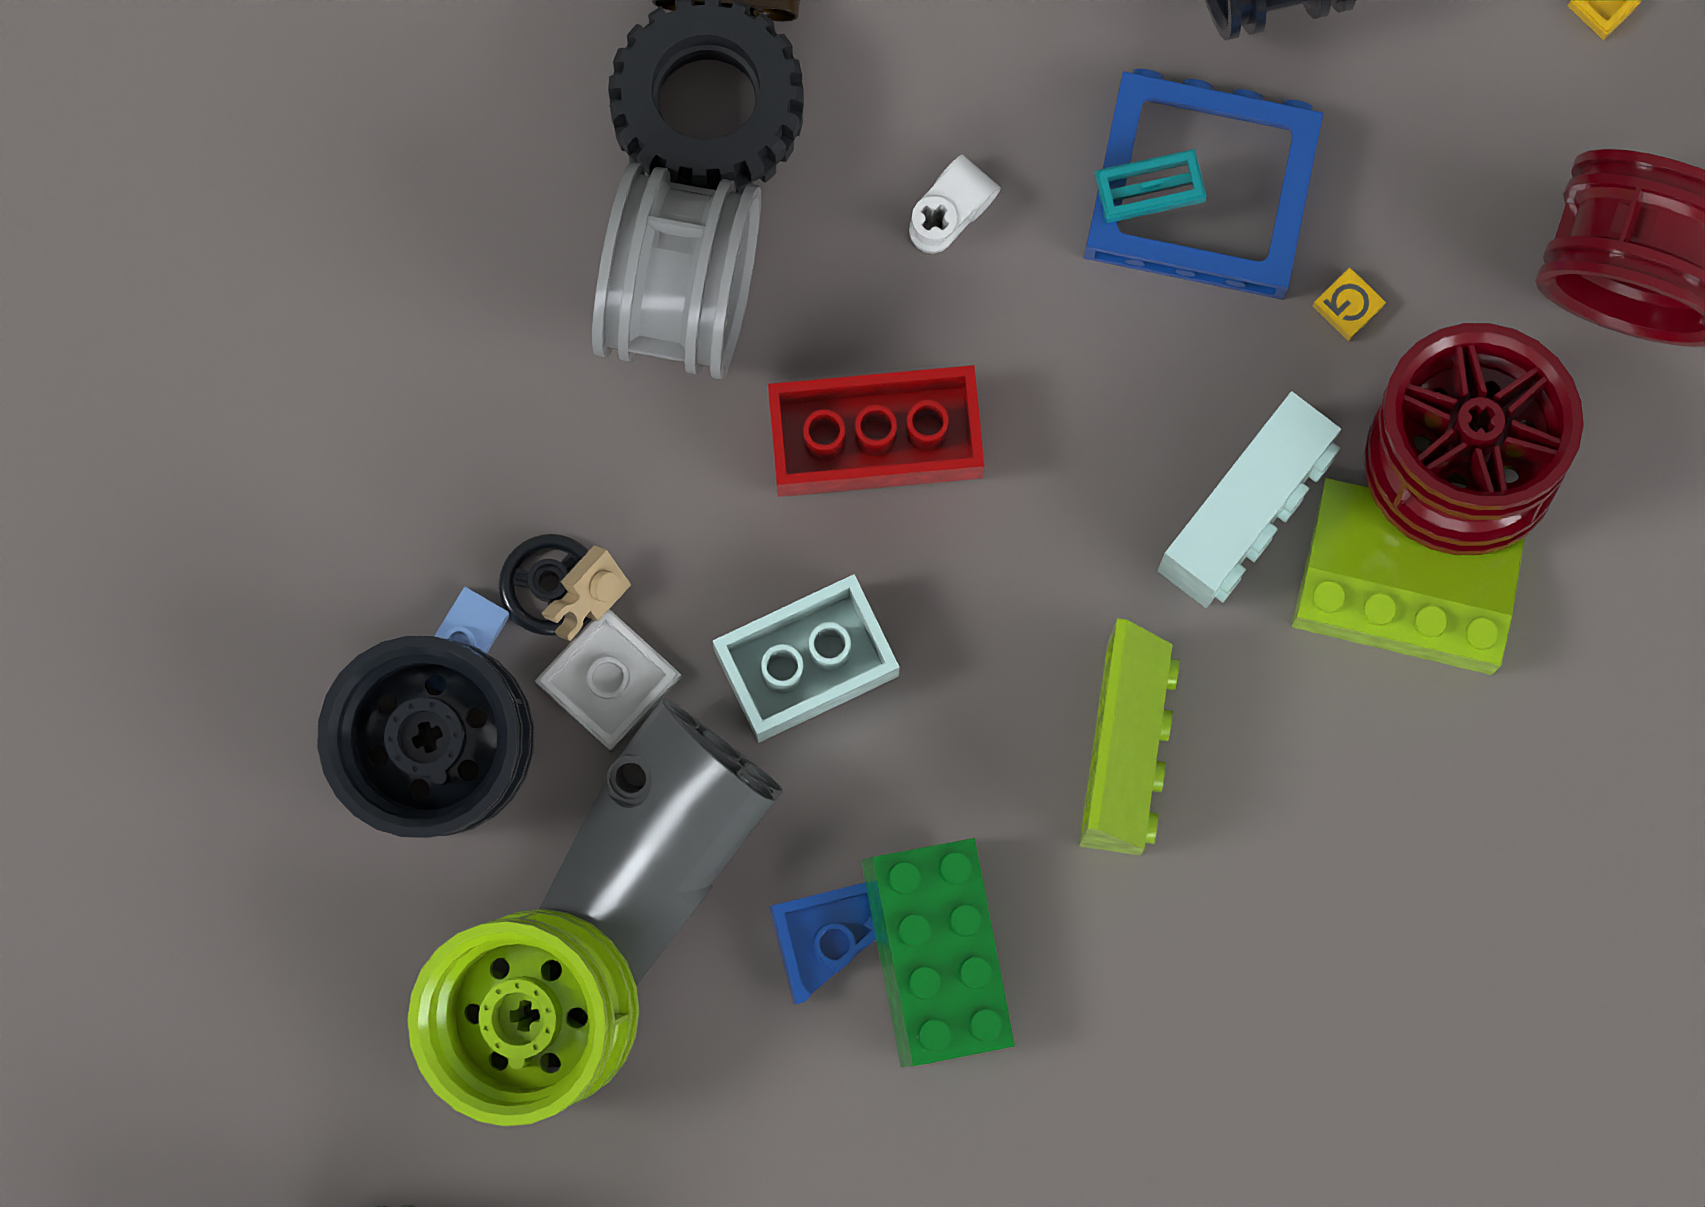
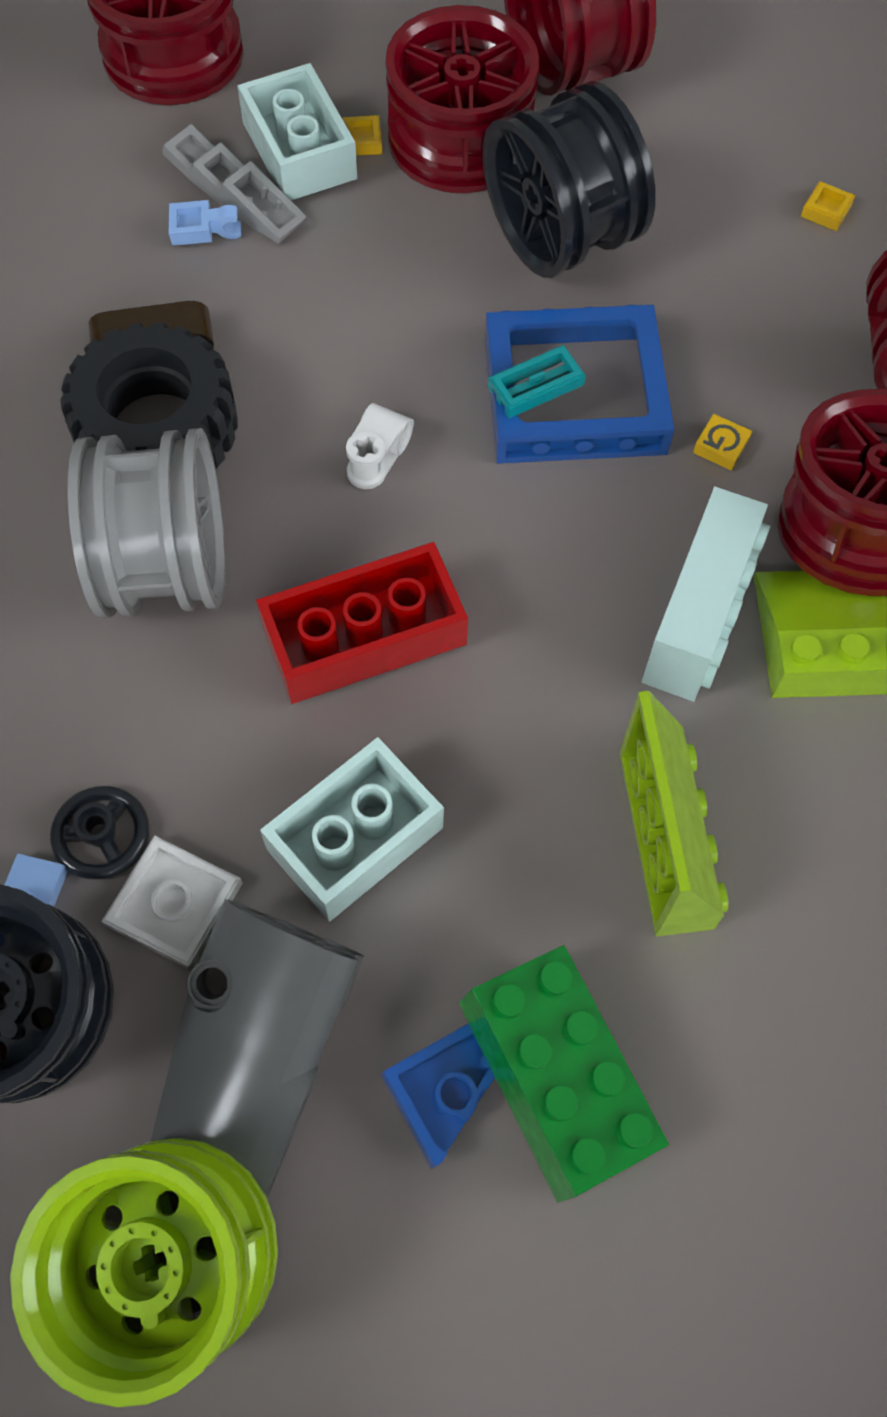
camera: 15 degrees left, 15 degrees down
(591, 589) = (137, 823): tan plate -> none

